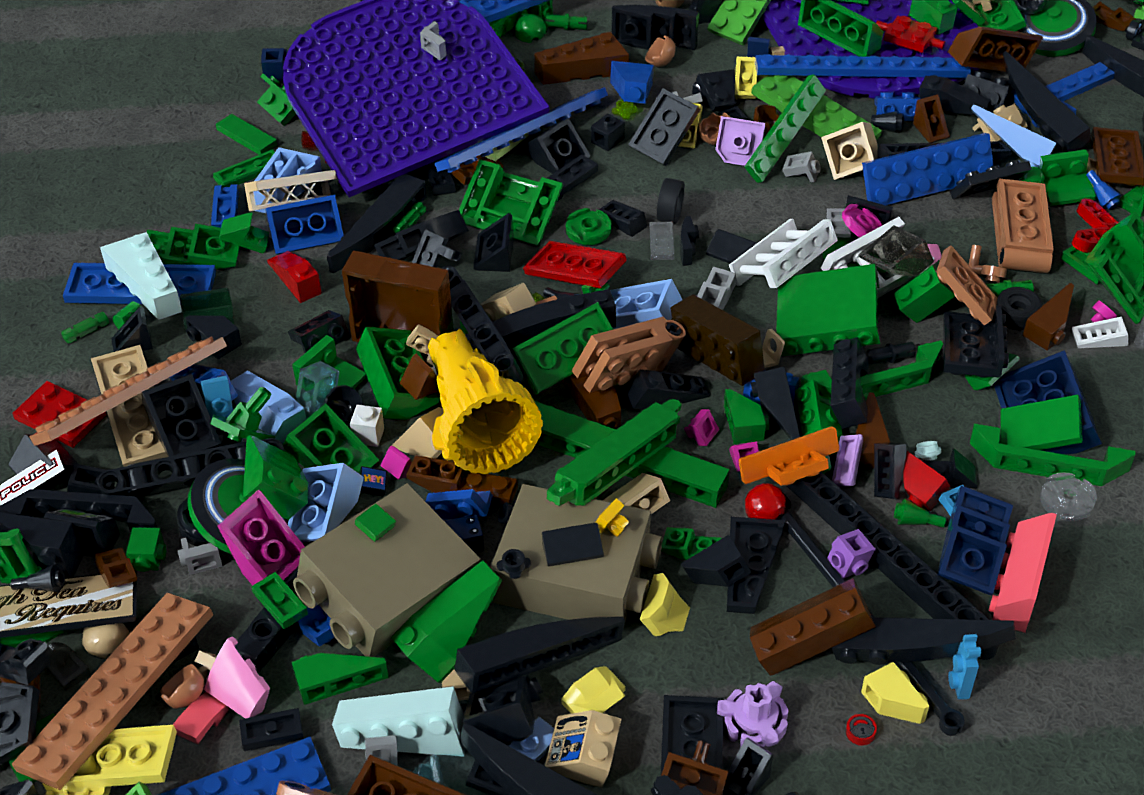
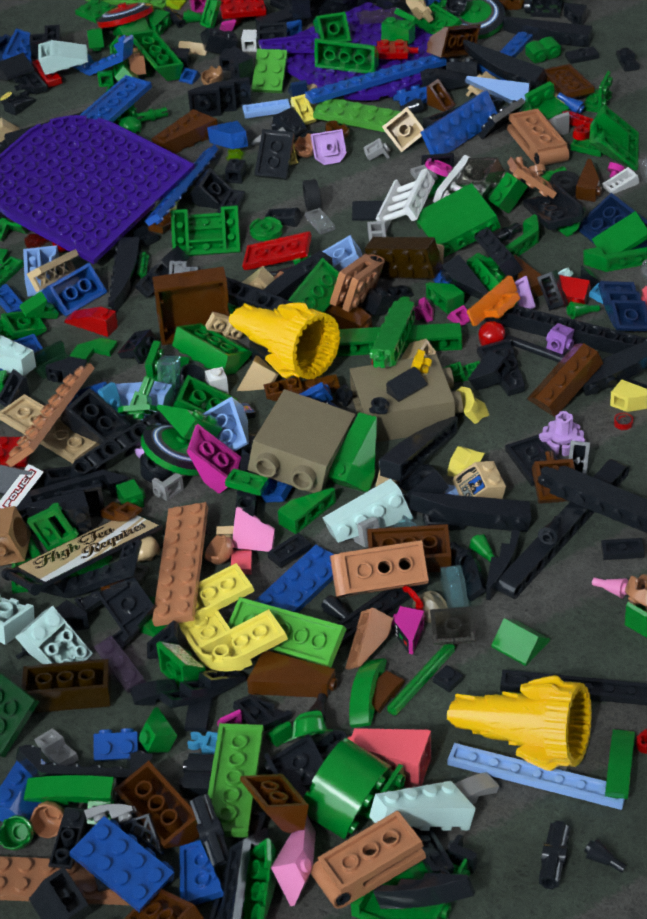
camera: 25 degrees left, 5 degrees down
(47, 579) = (84, 531): black cone -> none
(278, 312) = (99, 346): none -> green tile
(375, 522) = (284, 412): green tile -> none
(396, 462) = (252, 394): dark pink slope -> none
(419, 378) = (237, 339): reddish brown slope -> none
(432, 41) = (91, 147): light grey bracket -> none
(495, 246) = (216, 255): black slope -> none
(661, 52) = (233, 112): nougat hair -> none
(689, 234) = (338, 218): black slope -> none
(704, 59) = (265, 108): none -> light blue plate
(785, 128) = (353, 130): green plate -> none
(1065, 216) = (561, 123): none -> light grey slope
(1114, 99) = (543, 49): none -> green brick

